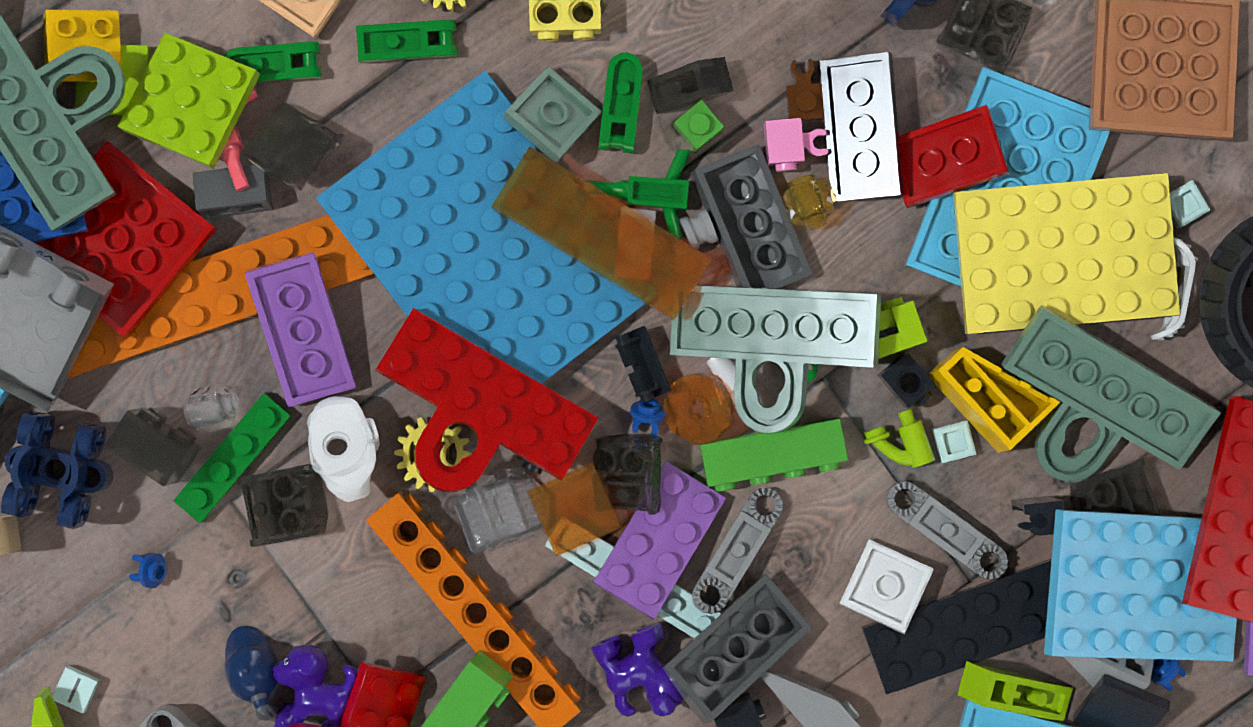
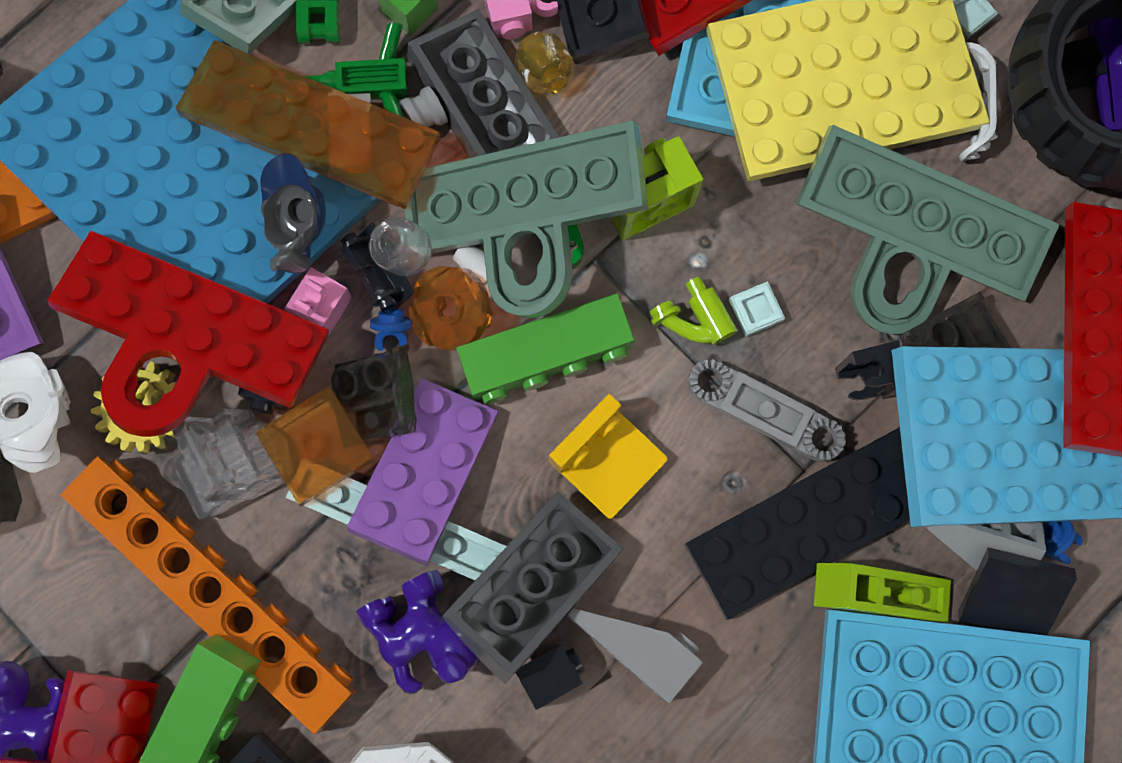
camera: 10 degrees left, 10 degrees down
(580, 317) = (291, 212): none -> dark grey hair
(589, 386) = (319, 300): none -> bright pink brick
(666, 355) = (400, 246): none -> clear head
(737, 550) = (519, 471): light grey plate -> none
(810, 551) = (607, 458): none -> yellow bracket
(886, 586) = (705, 487): white plate -> none
(891, 378) = (686, 227): black brick -> none
(991, 399) = (787, 246): yellow wedge -> none

